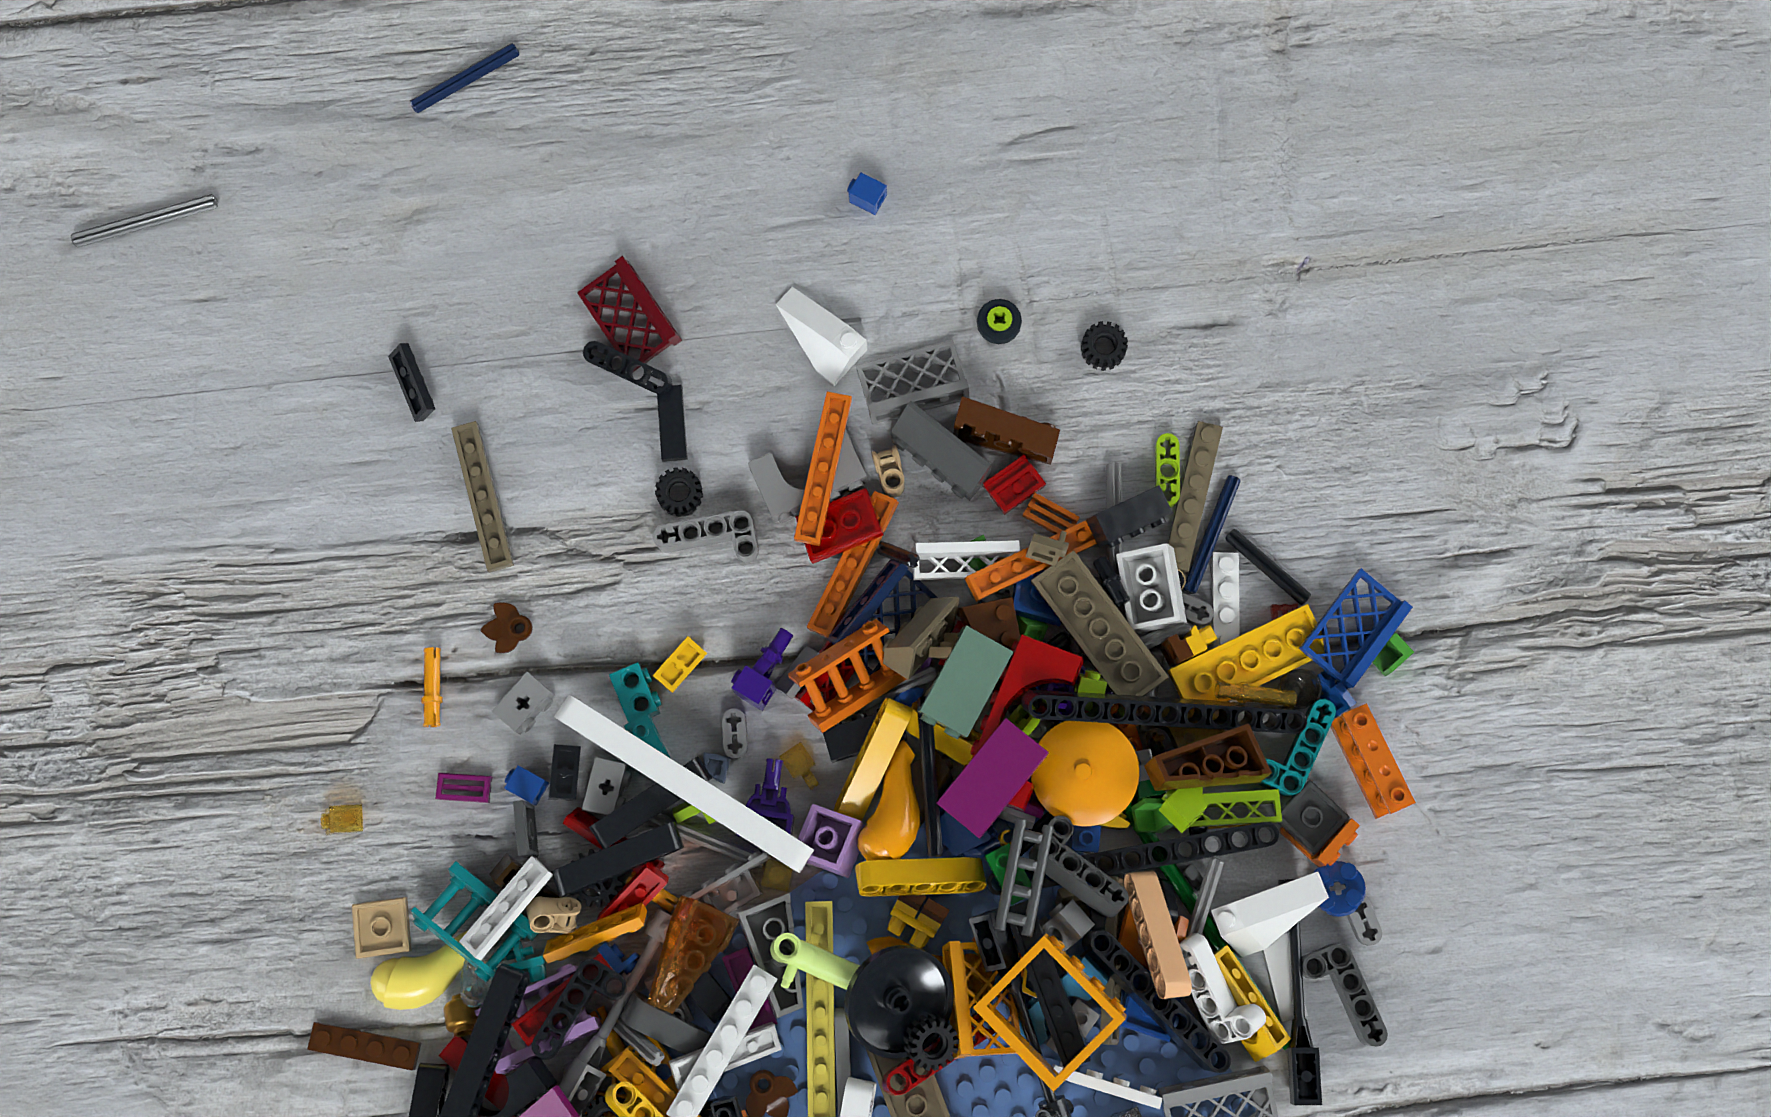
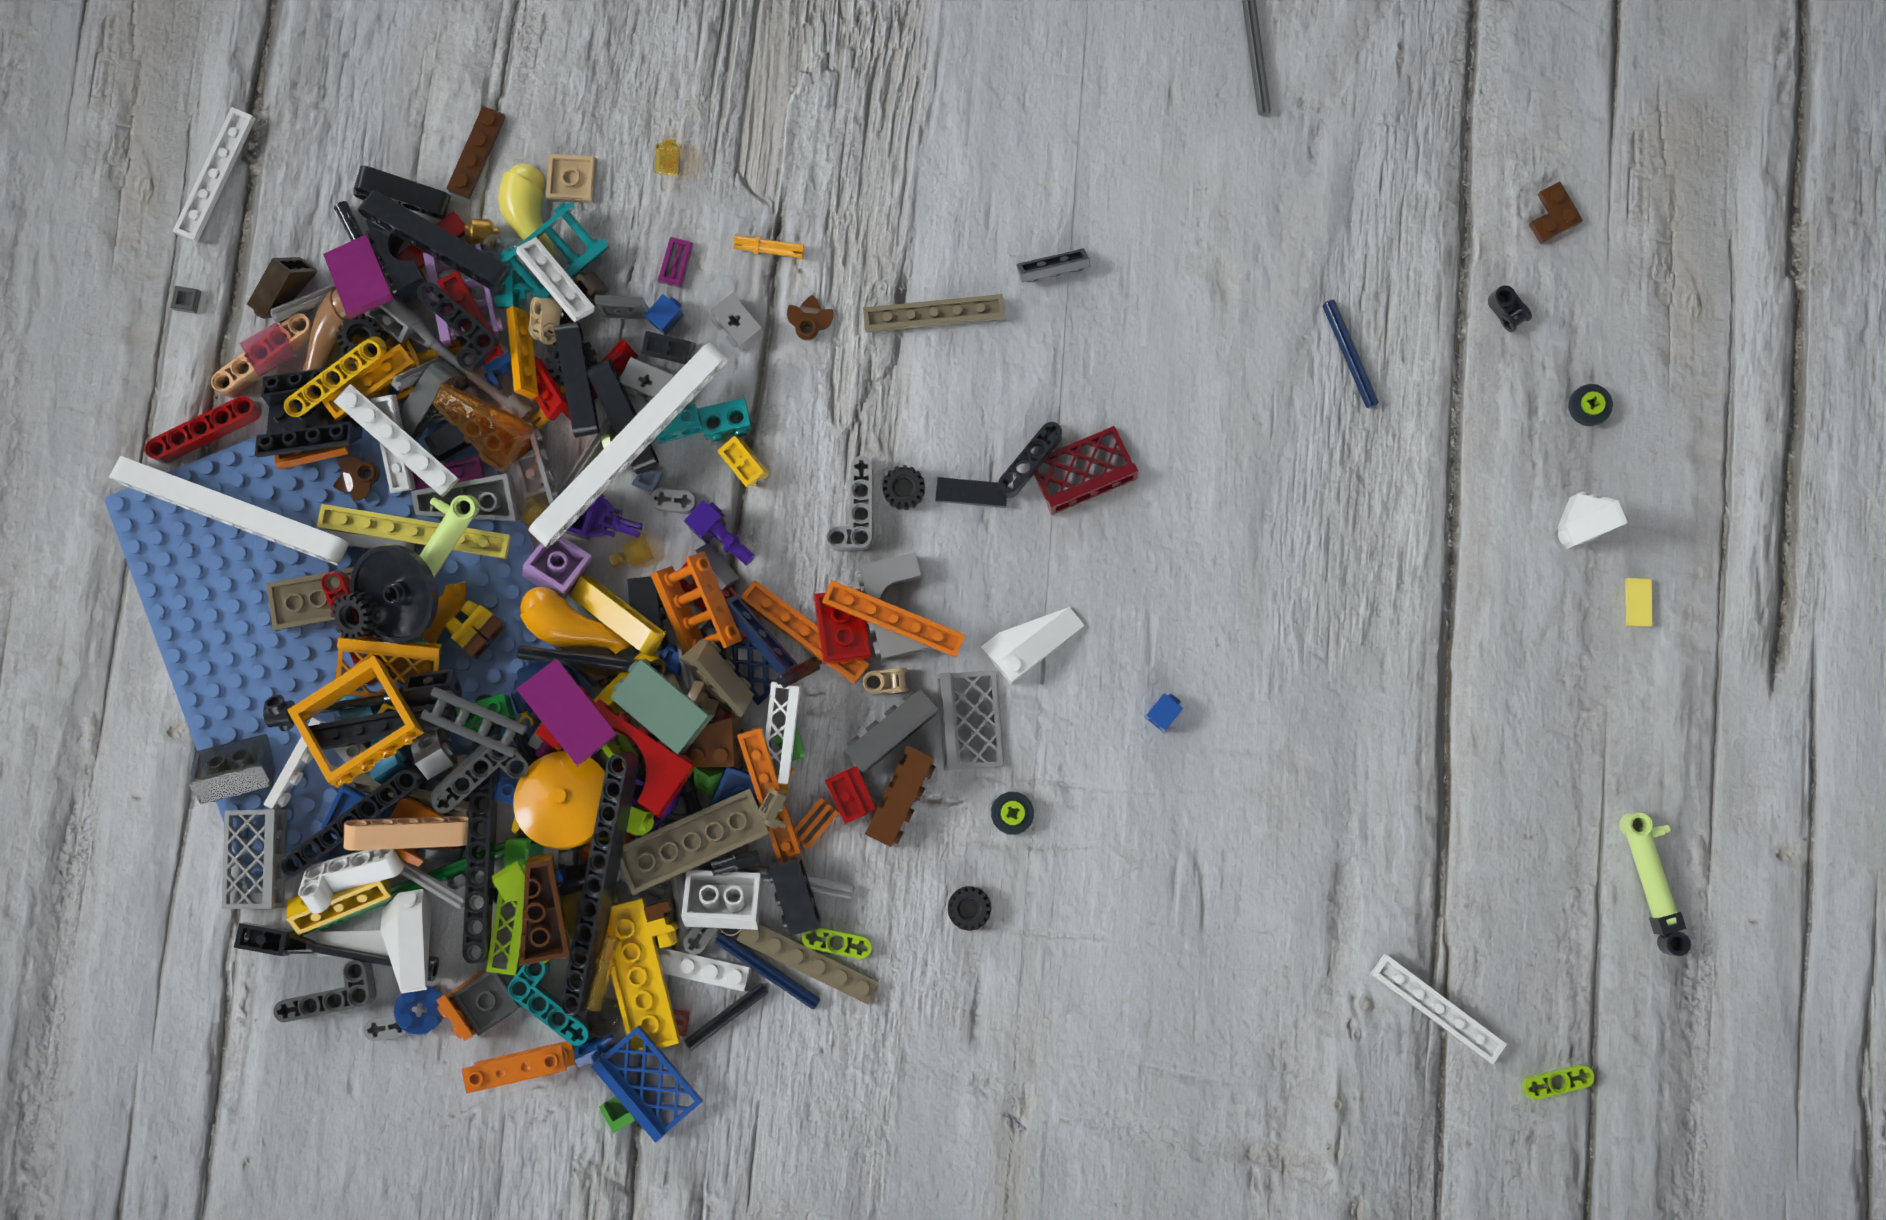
camera: 95 degrees right, 5 degrees up
(920, 876) = (504, 636): yellow beam -> none

